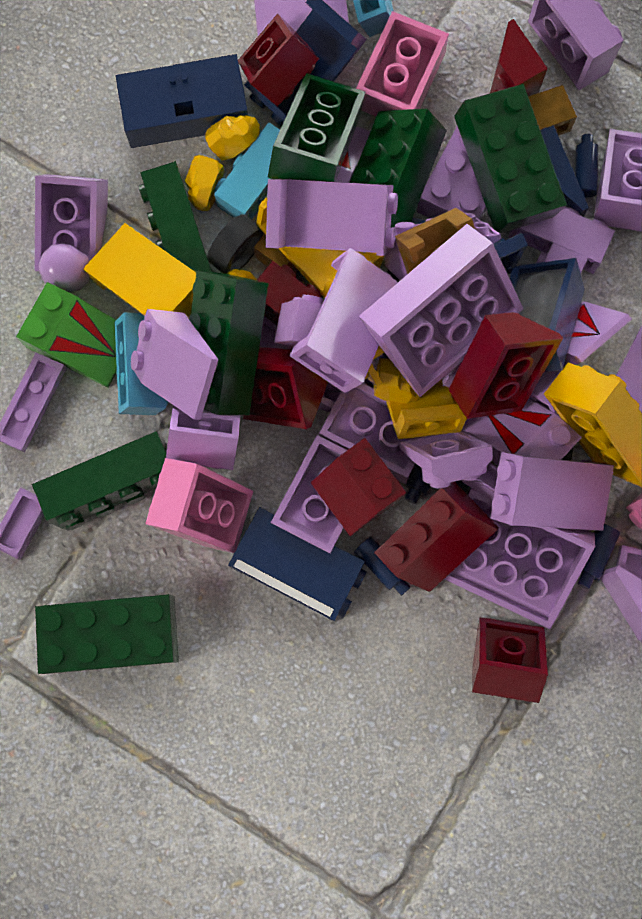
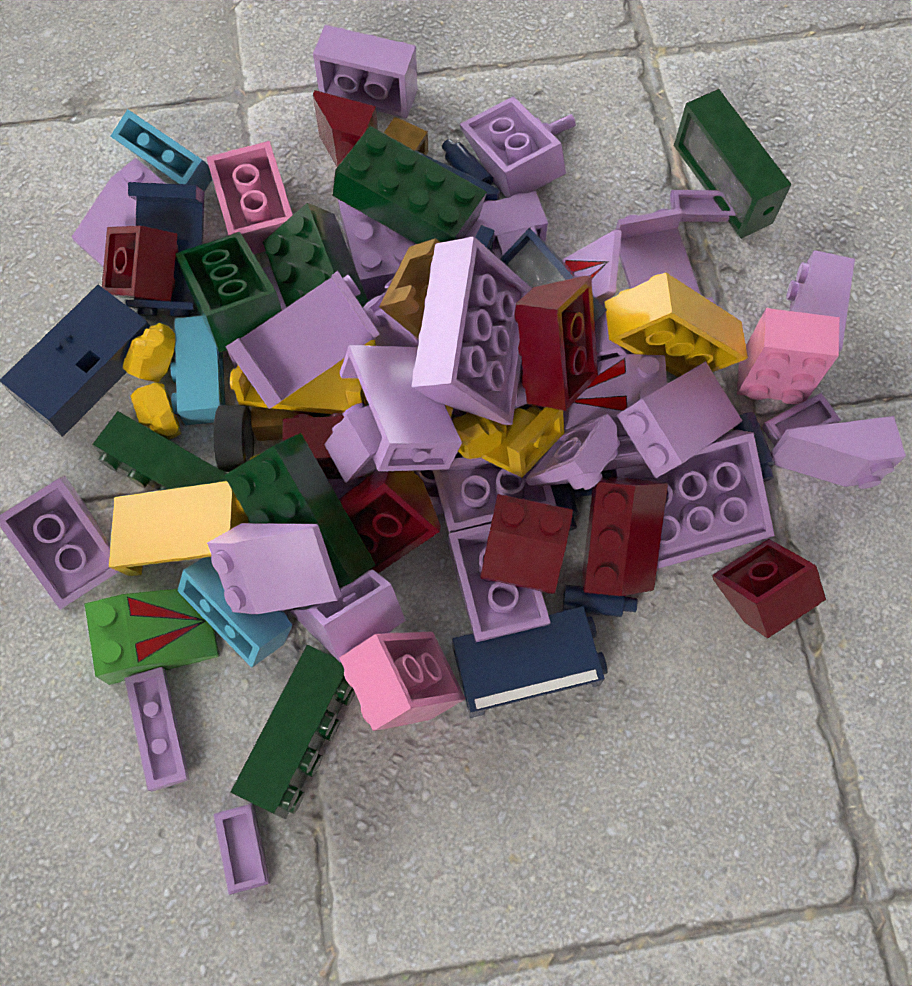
camera: 45 degrees left, 10 degrees down
(64, 267) = (87, 580): lavender hair -> none
(106, 634) = (414, 876): dark green brick -> none

